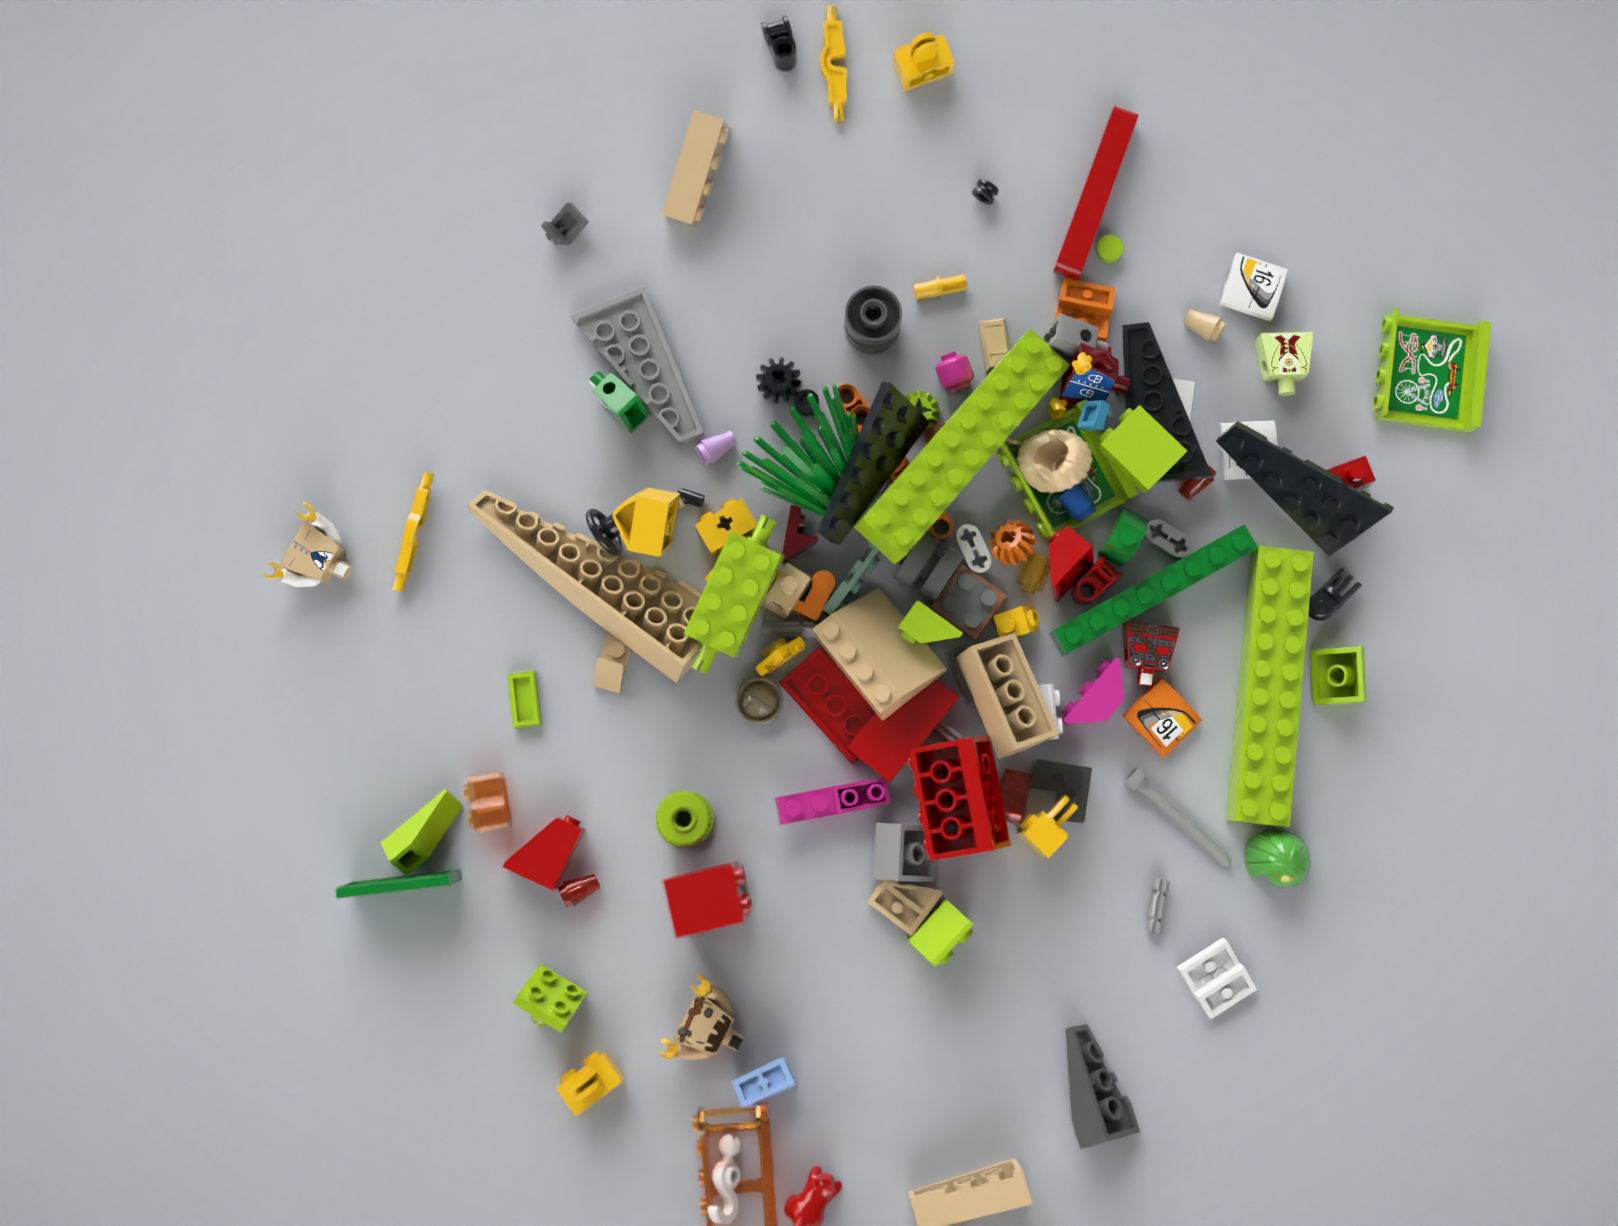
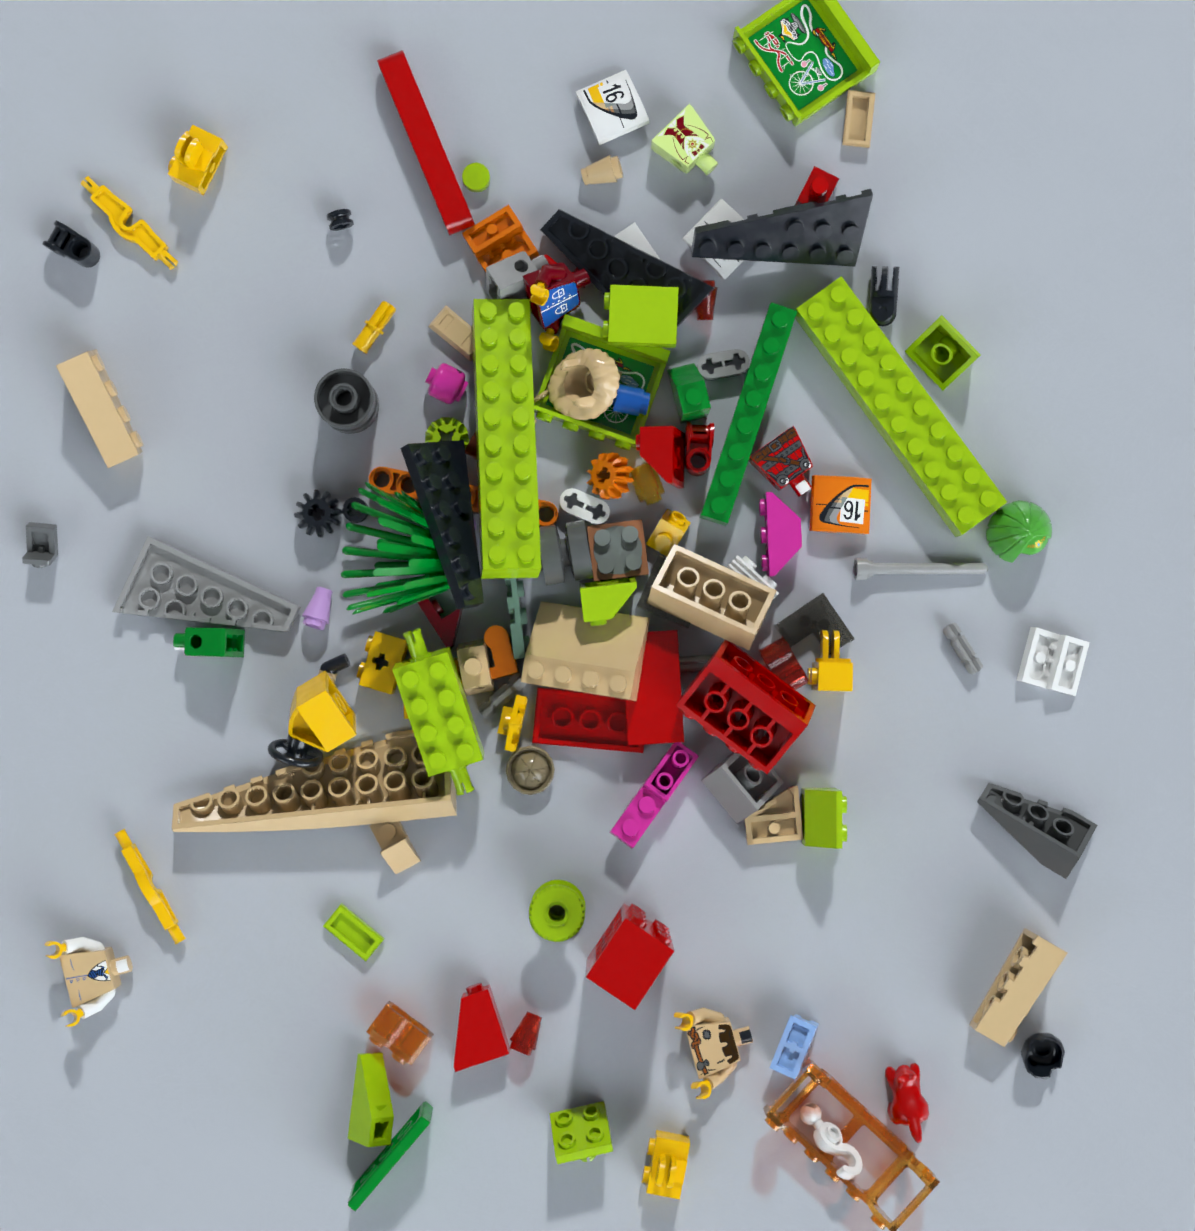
camera: 40 degrees left, 5 degrees up
(1094, 415) = (583, 322): dark azure tile -> none
(1427, 454) = (858, 119): none -> tan tile

